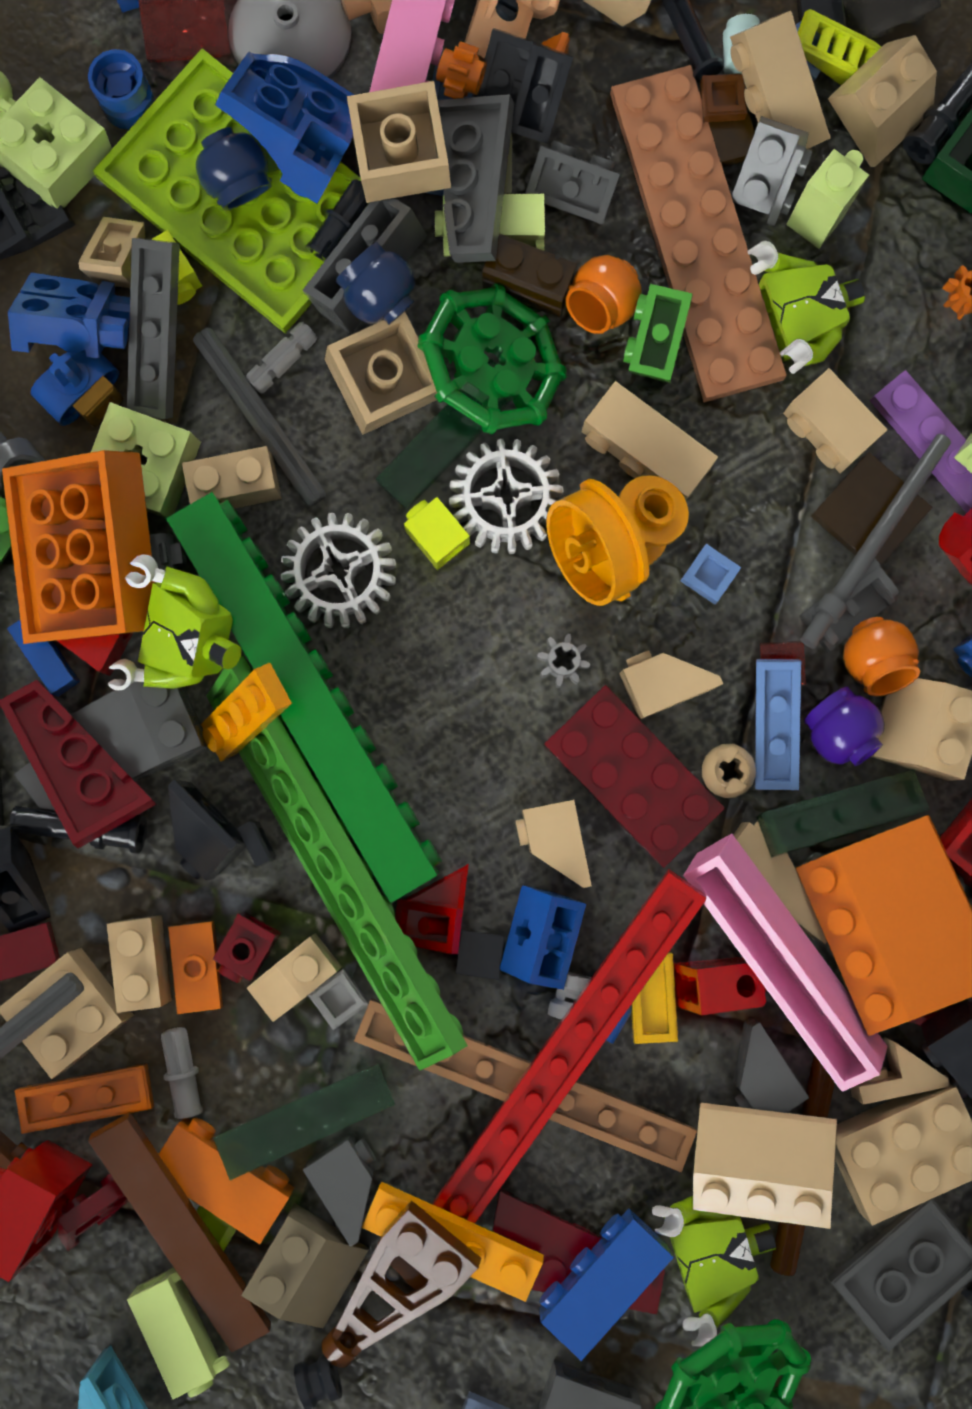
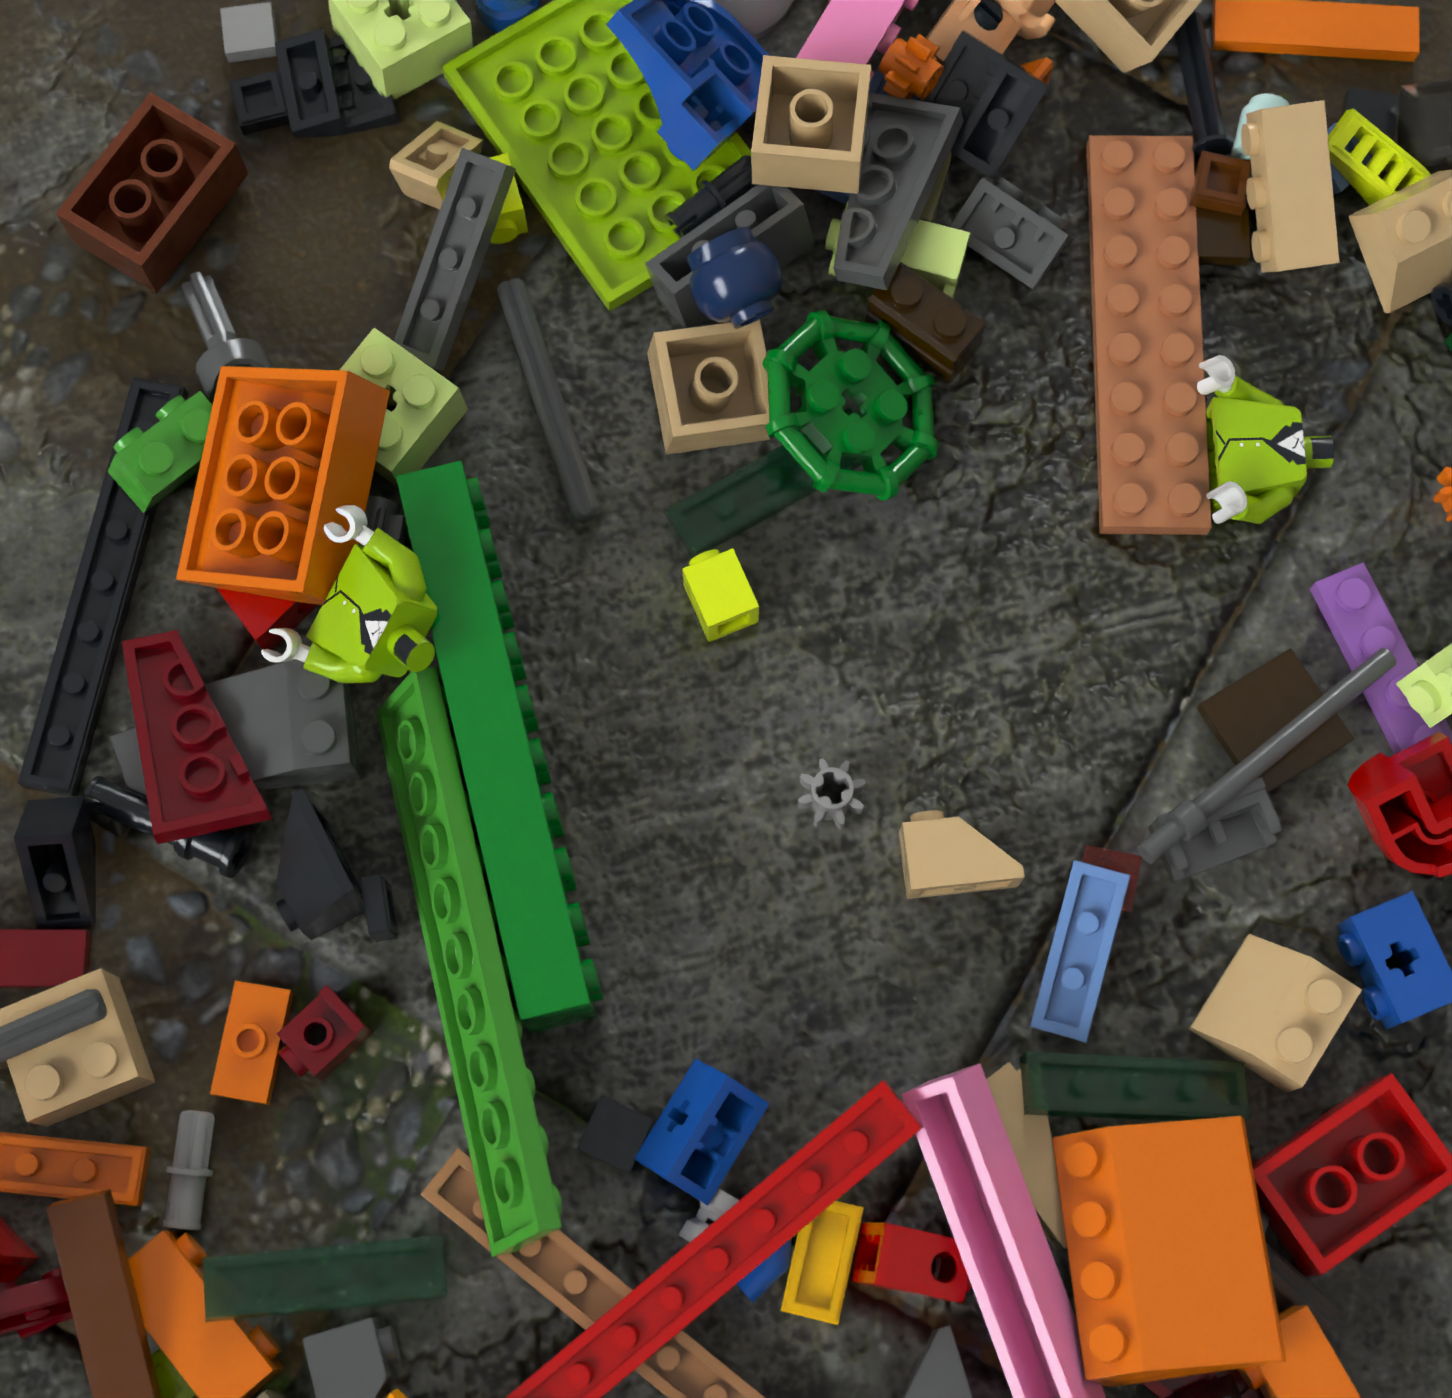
camera: 20 degrees right, 10 degrees down
(47, 662) = (196, 614): blue piece -> none
(68, 381) = (339, 297): blue beam -> none
(69, 315) = (358, 217): blue hips -> none
(96, 401) = (357, 323): pearl gold tile -> none
(139, 963) = (184, 1013): tan brick -> none
(233, 168) = (606, 104): dark blue piece -> none
(239, 476) = (505, 459): tan brick -> none
(245, 712) = (415, 734): light orange plate -> none
(281, 357) = (596, 337): light grey axle -> none
(294, 977) = (371, 1090): tan slope -> none
(323, 537) = (566, 610): white gear -> none
(338, 998) = (418, 1137): light grey tile -> none
(435, 913) = (576, 1064): red slope -> none
(486, 498) = (839, 579): white gear -> none
(556, 839) = (755, 1013): tan slope -> none
(603, 294) = (1009, 368): orange piece -> none
(610, 539) = (933, 659): light orange piece -> none
(634, 776) = (879, 966): dark red plate -> none
(646, 441) = (1014, 562): tan brick -> none
(660, 333) = (1064, 432): bright green brick -> none
(710, 574) = (1048, 741): medium blue plate -> none
(713, 774) = (1024, 996): tan piece -> none
(769, 168) = (1254, 276): bracket -> none
(828, 196) = (1316, 328): yellowish green brick -> none
(833, 421) = (1255, 599): tan brick -> none
(846, 727) = (1167, 979): dark purple piece -> none
(882, 656) = (1238, 903): orange piece -> none

